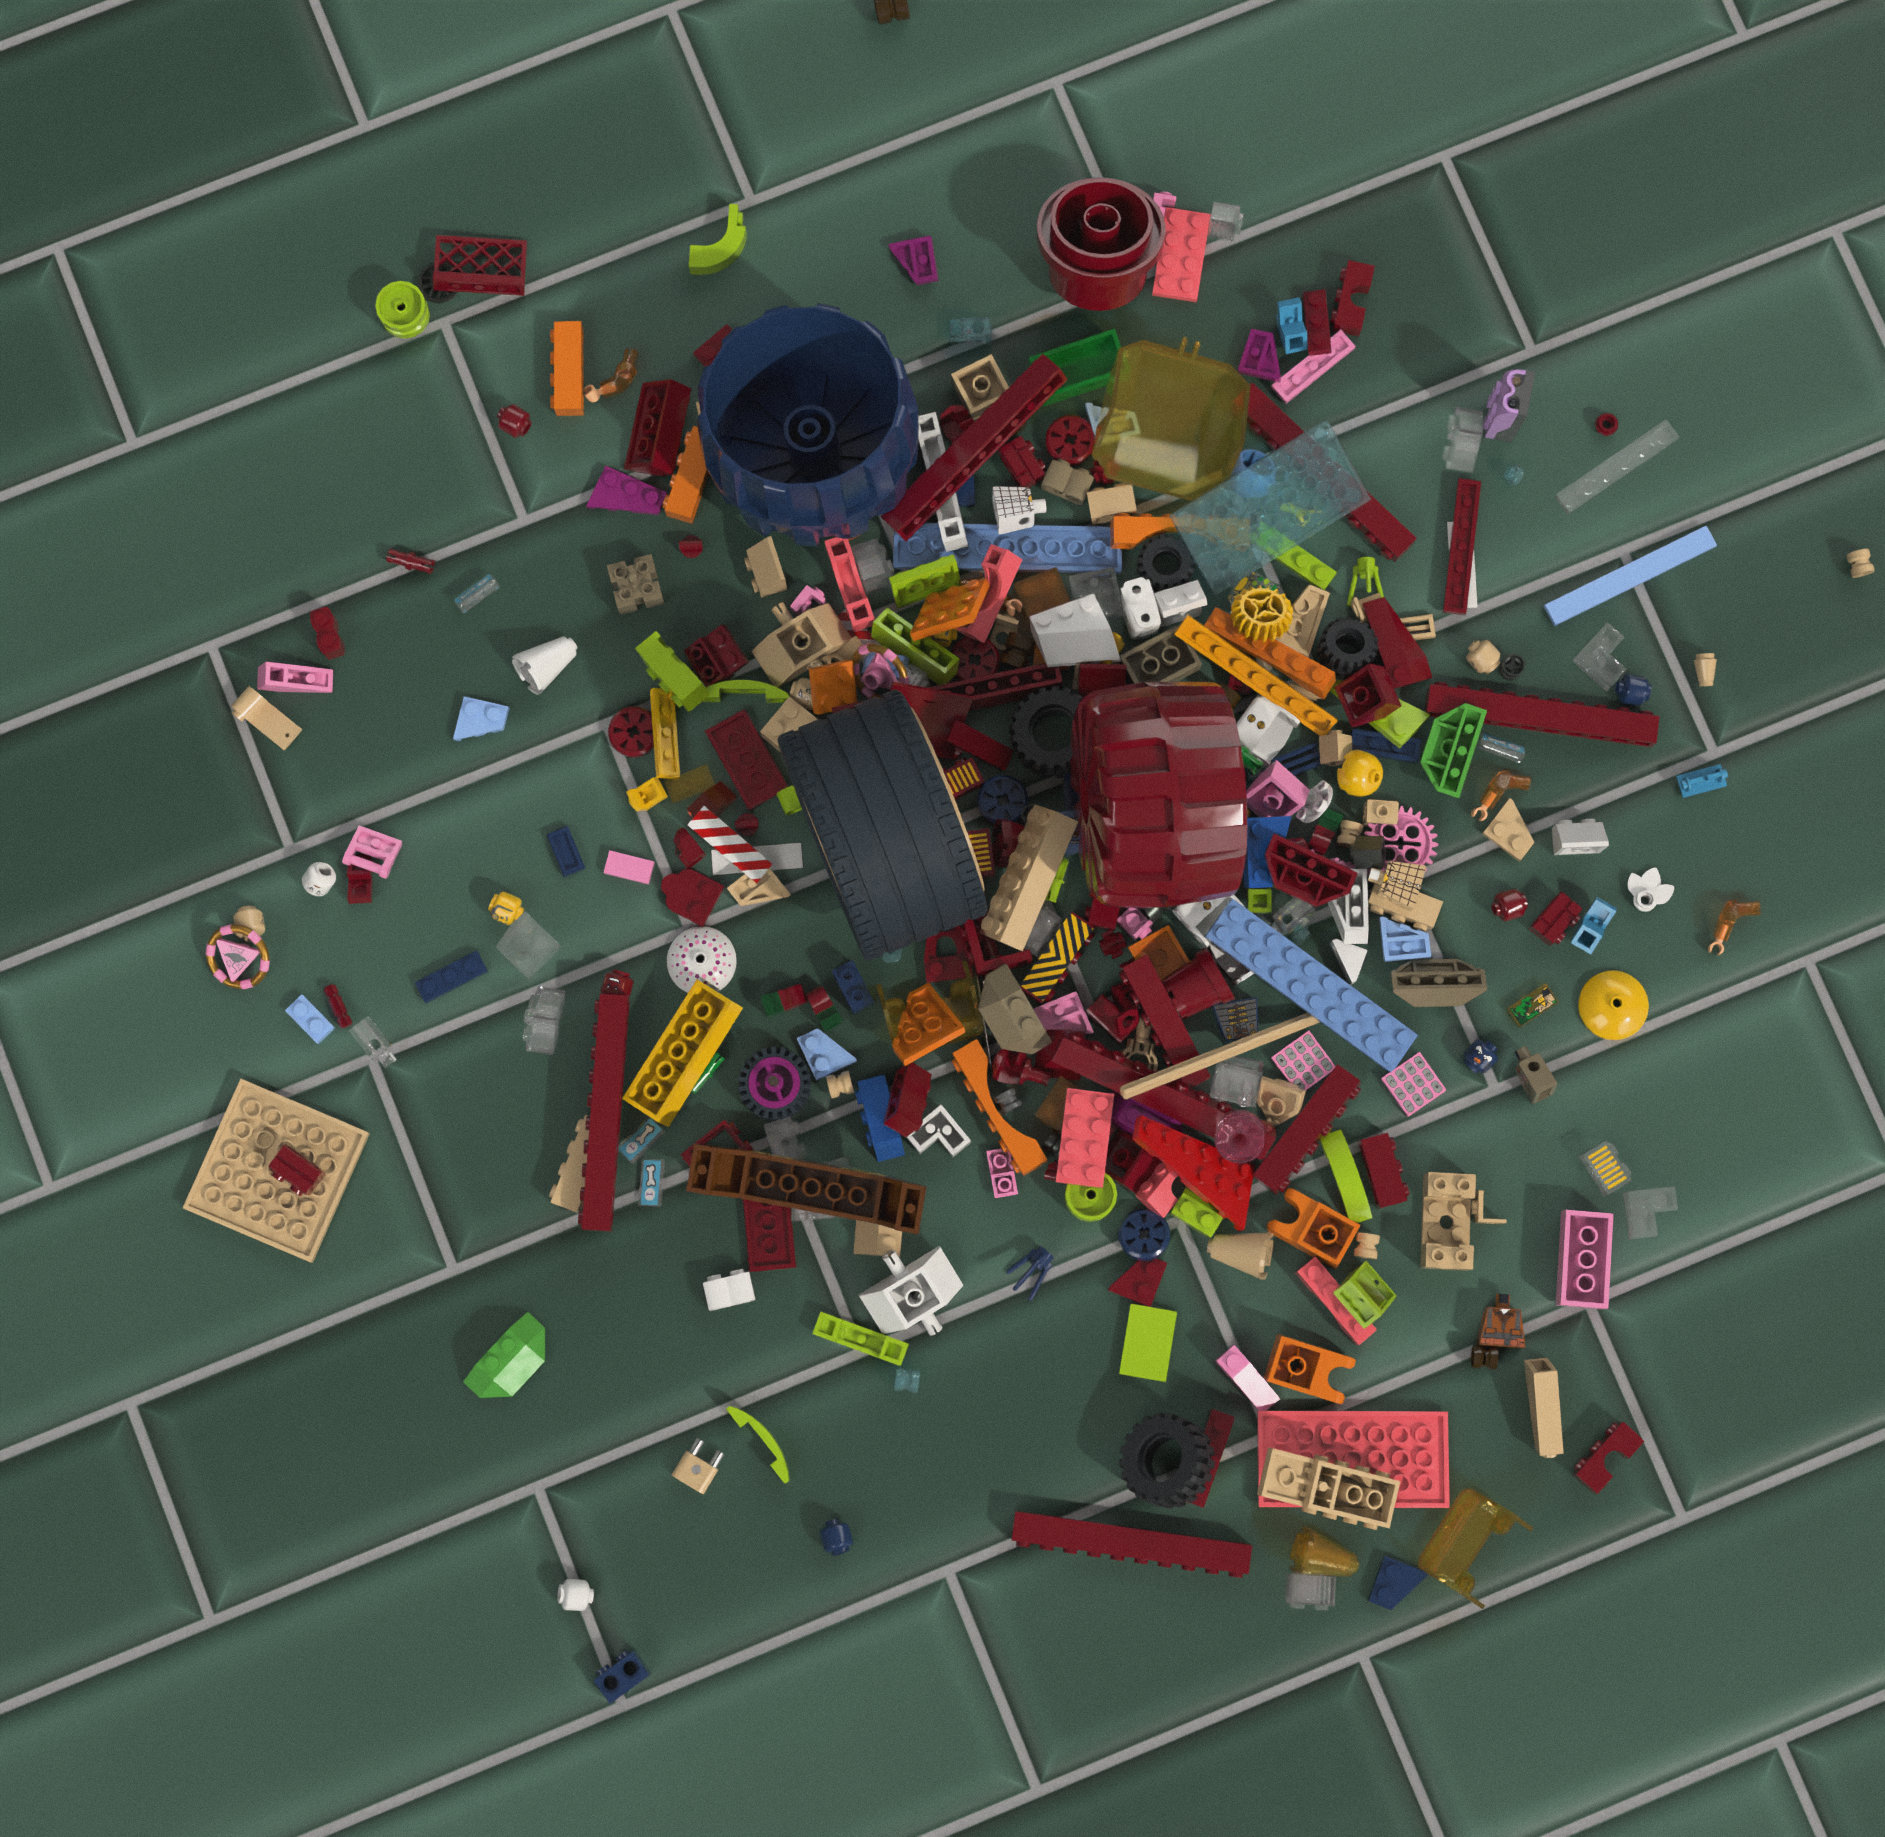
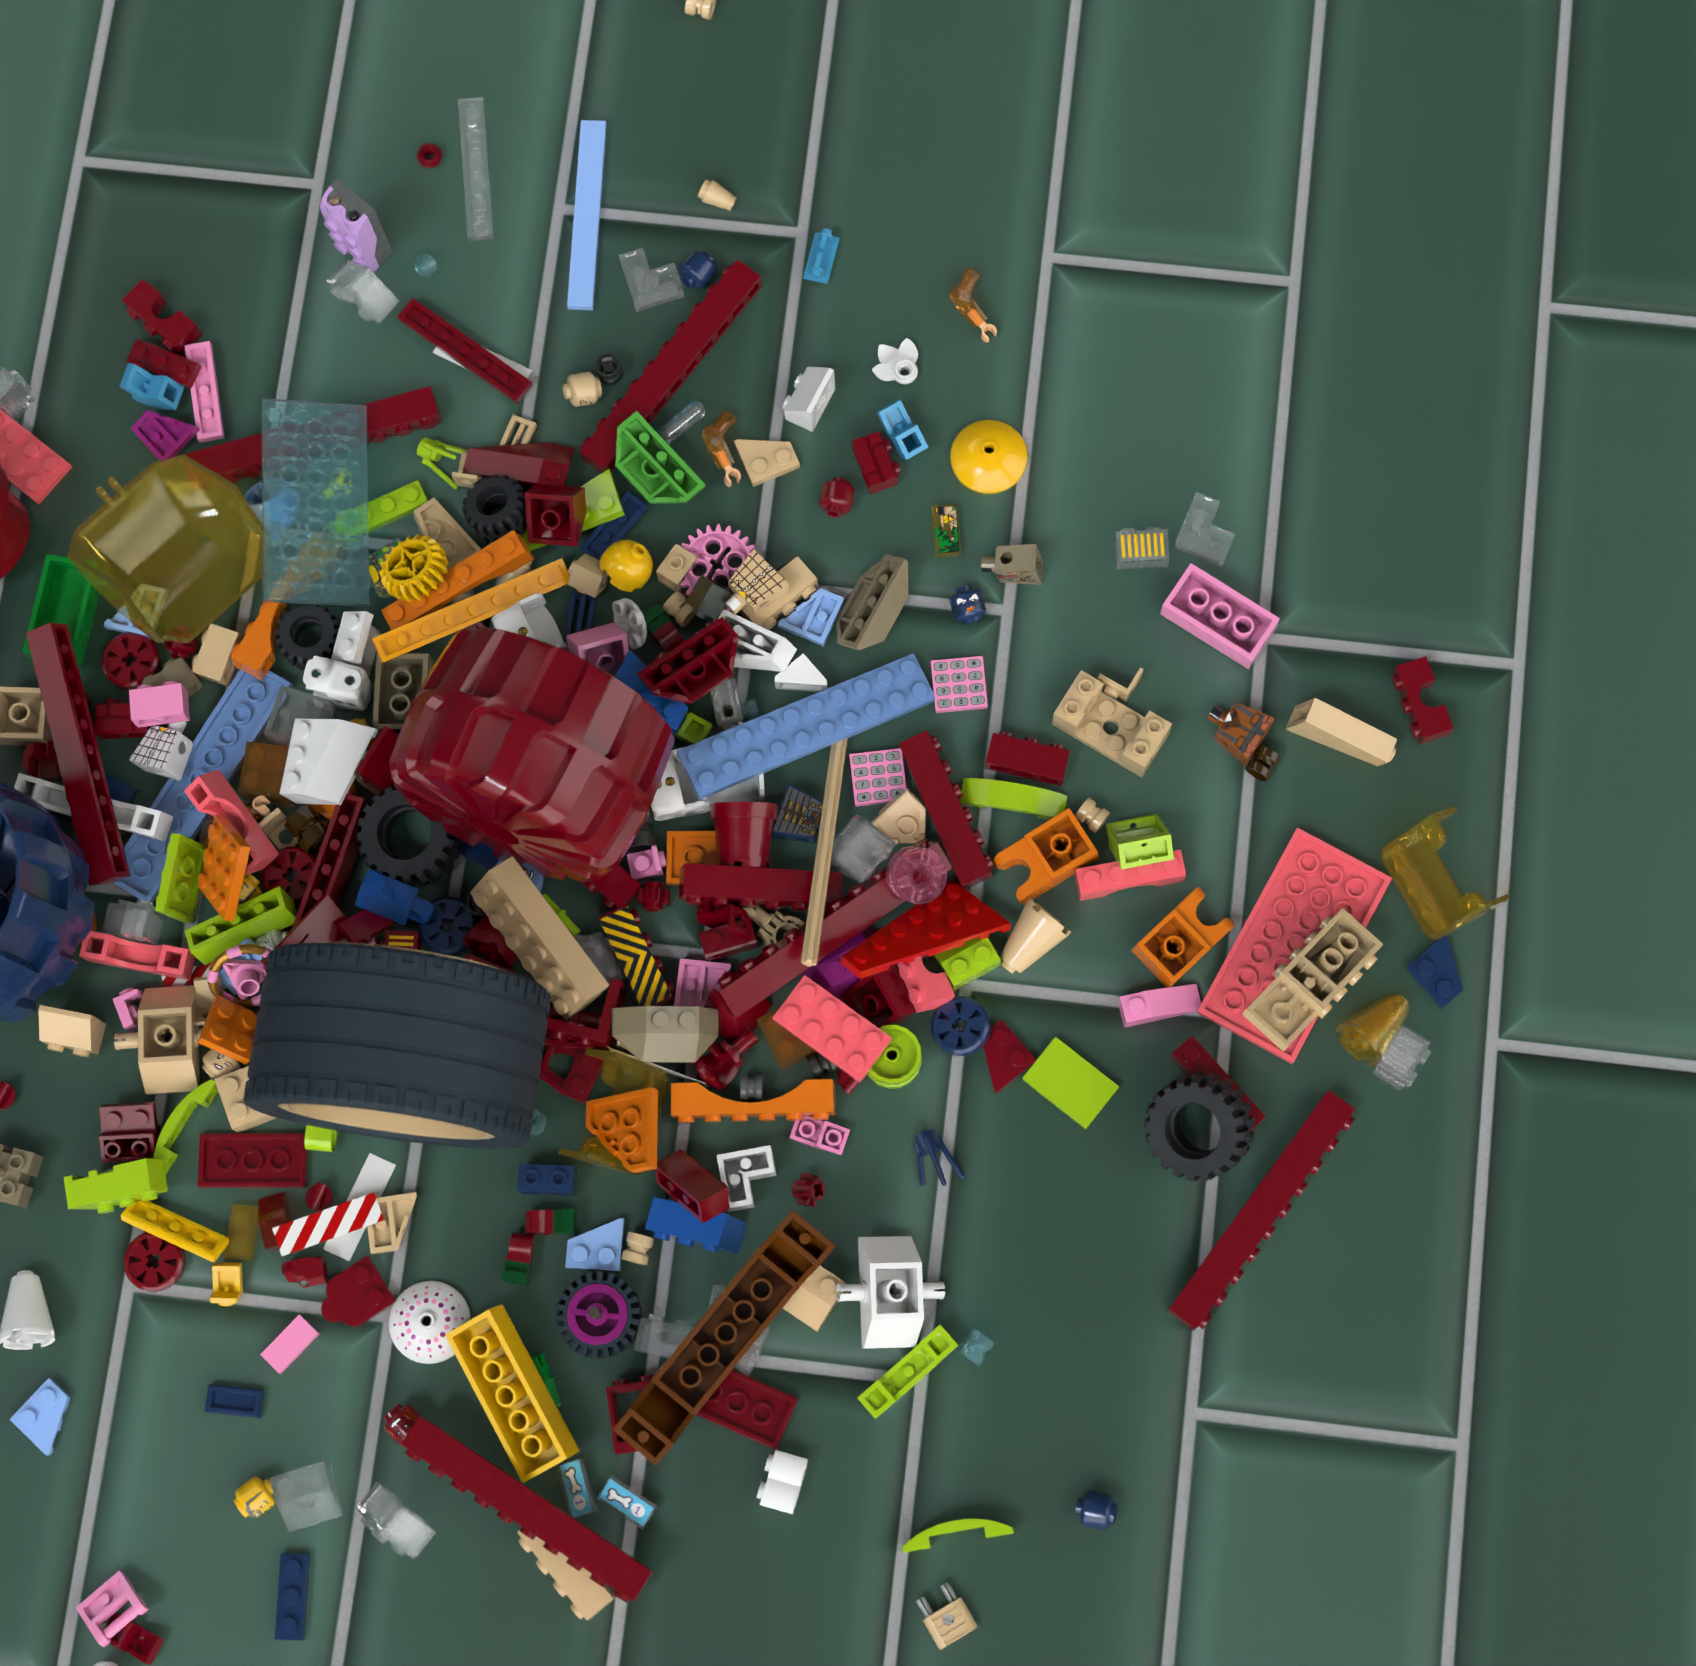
camera: 55 degrees left, 5 degrees down
(954, 1187) = (808, 1189): none -> dark red gear
(997, 749) = (392, 899): none -> blue brick
(1046, 484) = (159, 704): none -> bright pink brick

